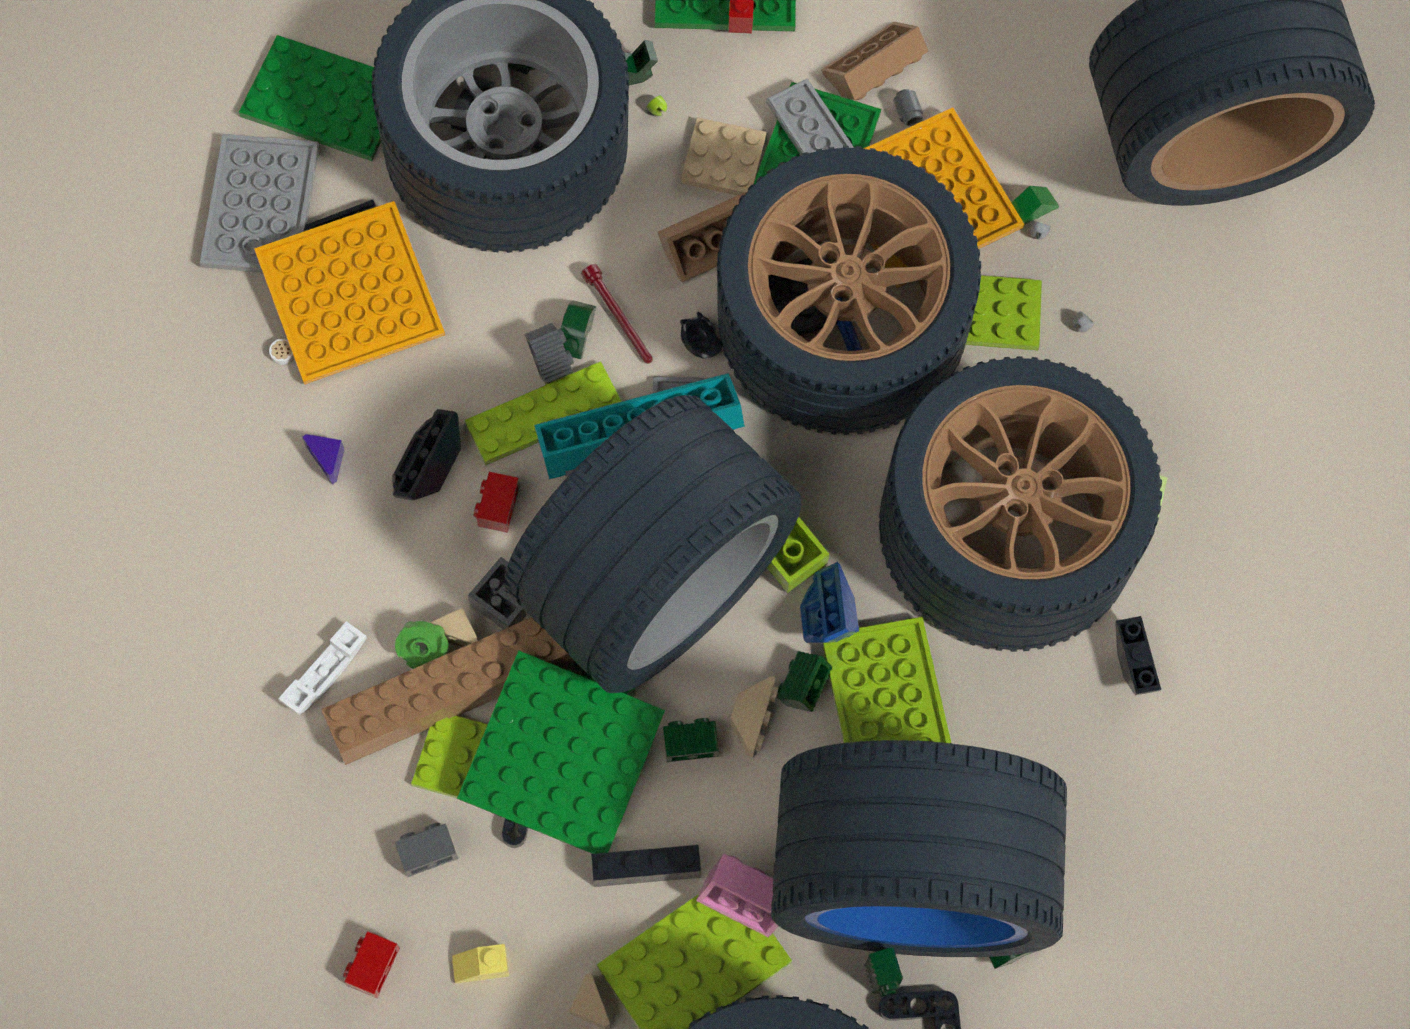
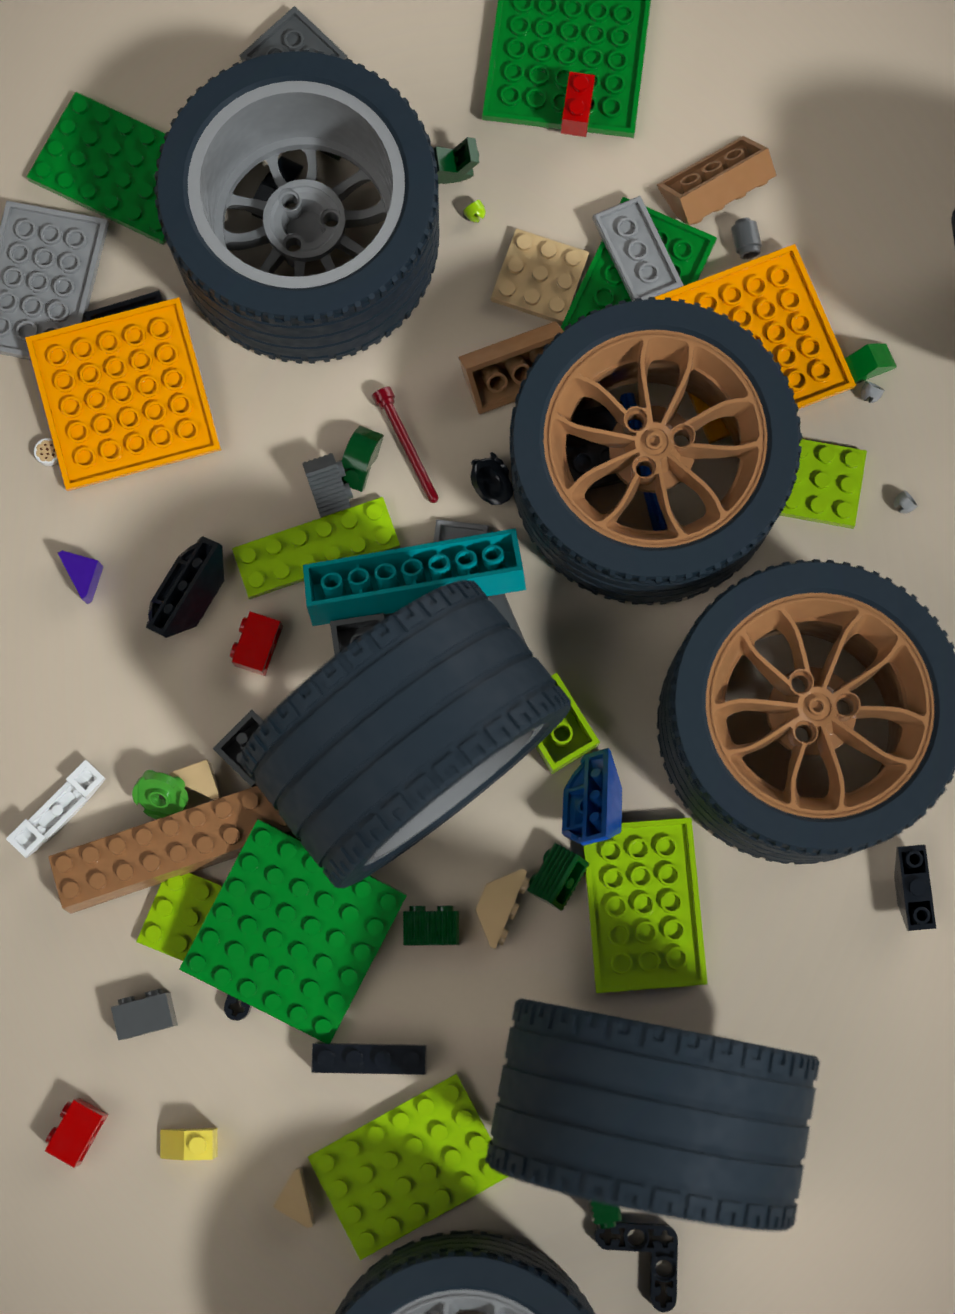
camera: 10 degrees right, 10 degrees up
(740, 894) = (460, 1105): bright pink brick -> none

